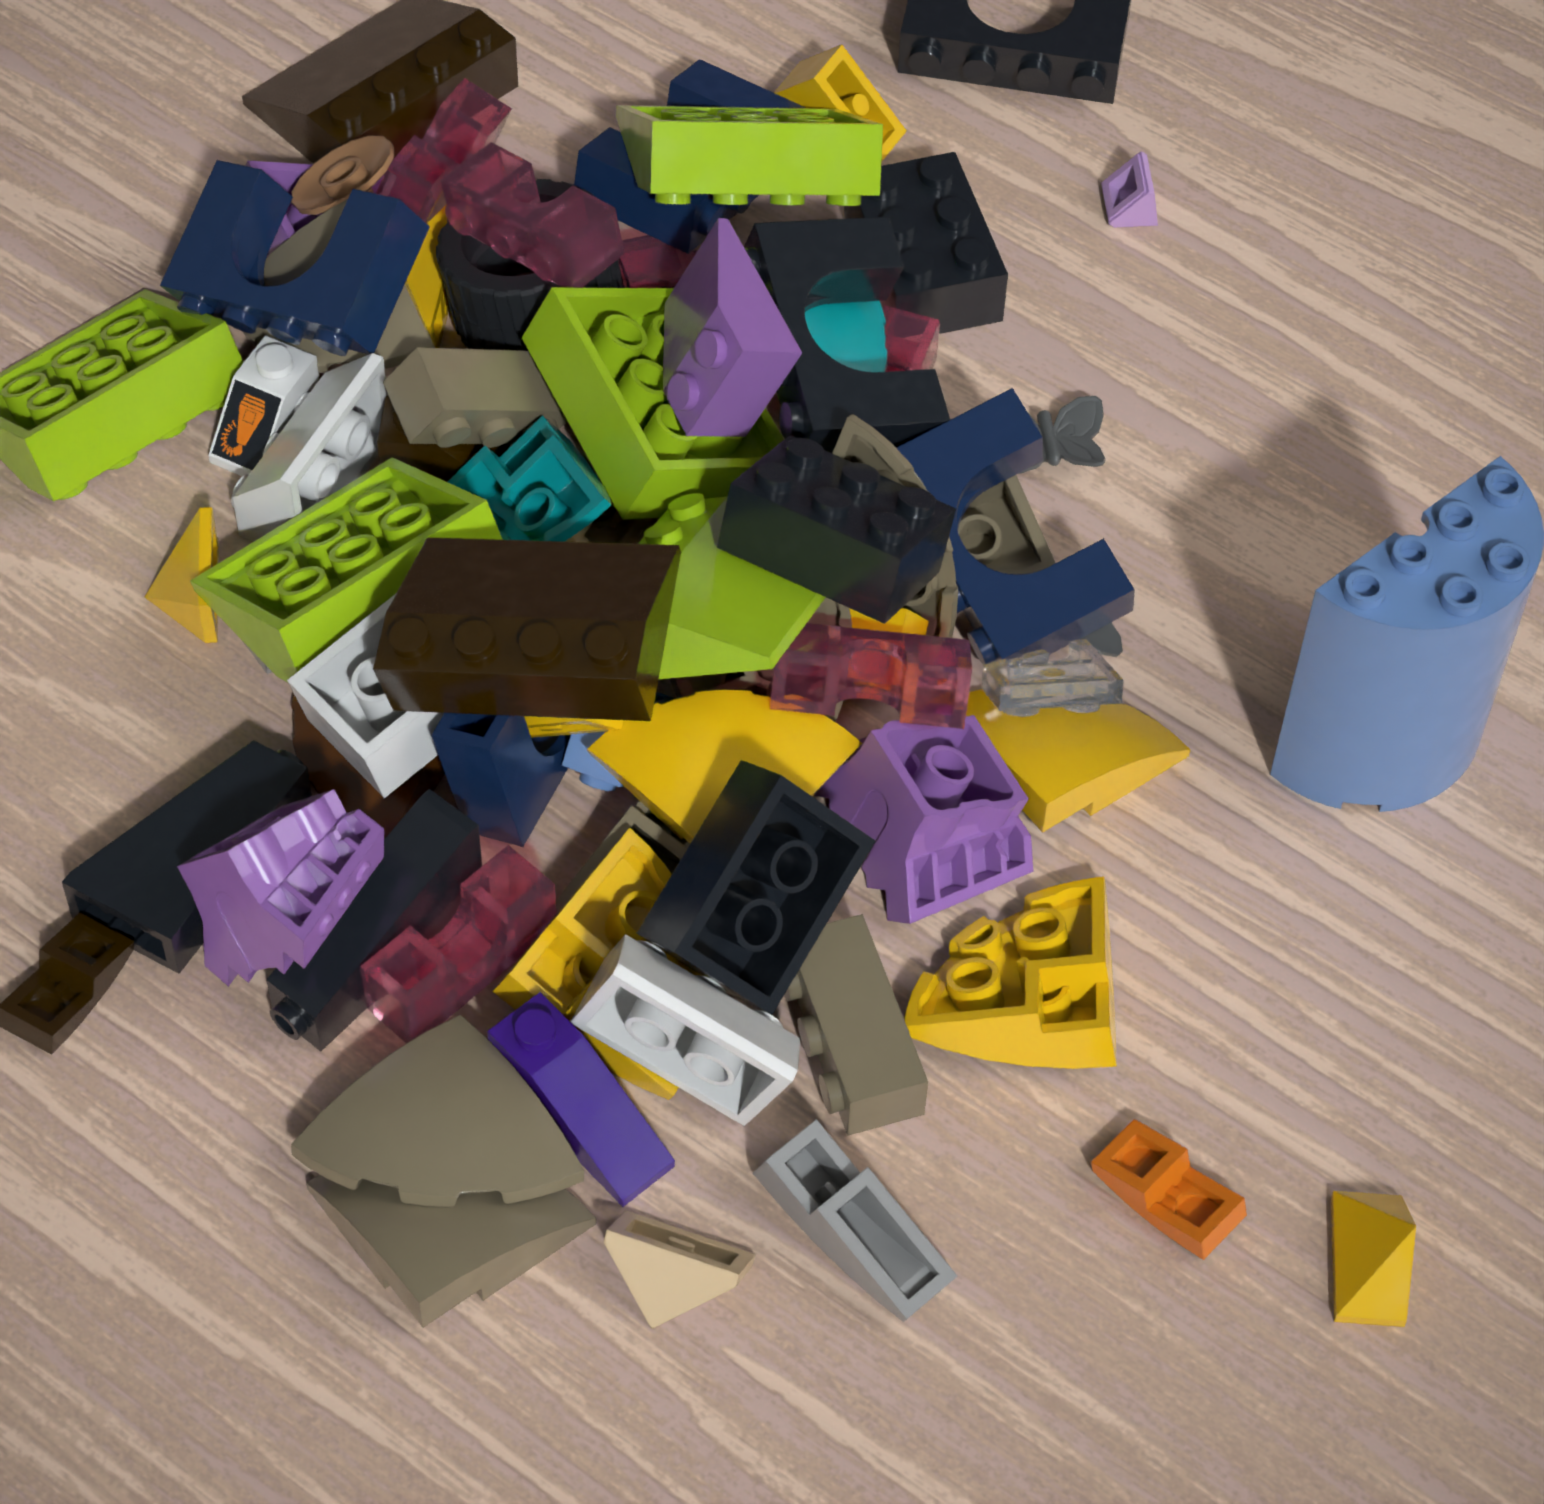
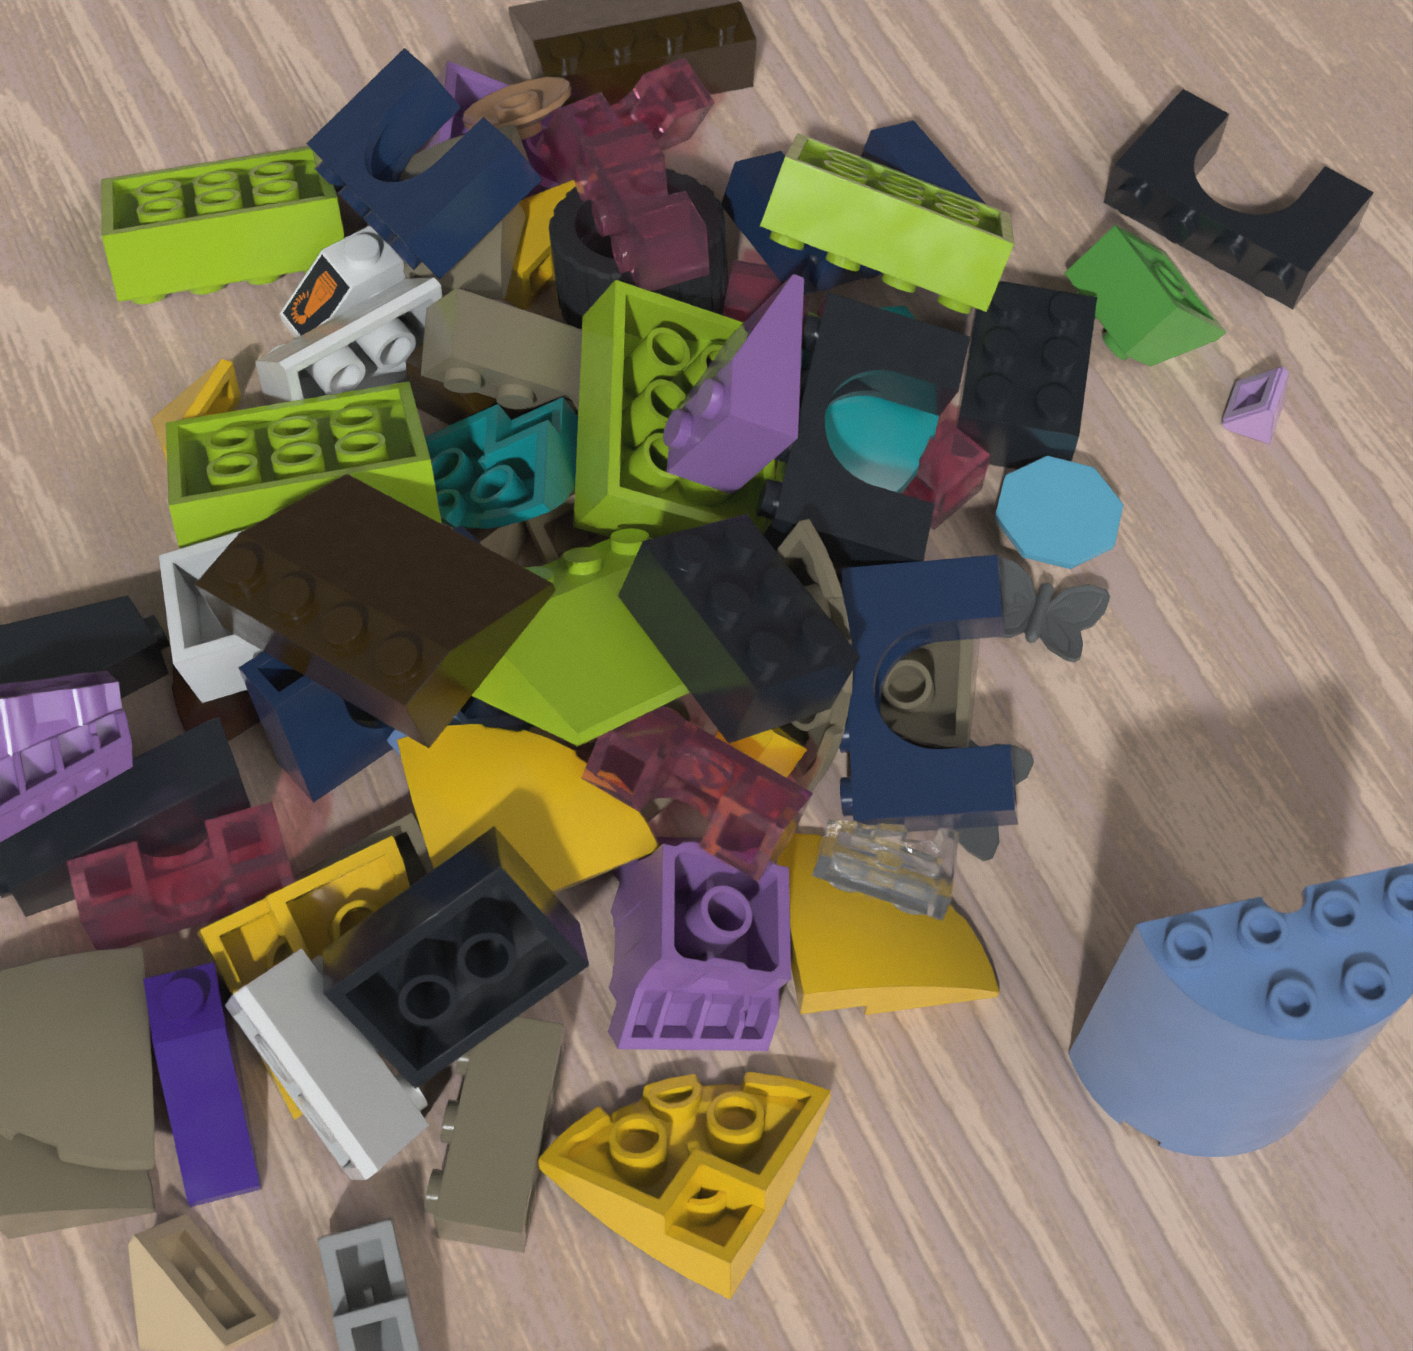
camera: 25 degrees right, 5 degrees up
(837, 82) = (1038, 223): yellow slope -> none
(991, 143) = (1142, 300): none -> bright green slope
(1019, 347) = (1058, 512): none -> medium azure piece

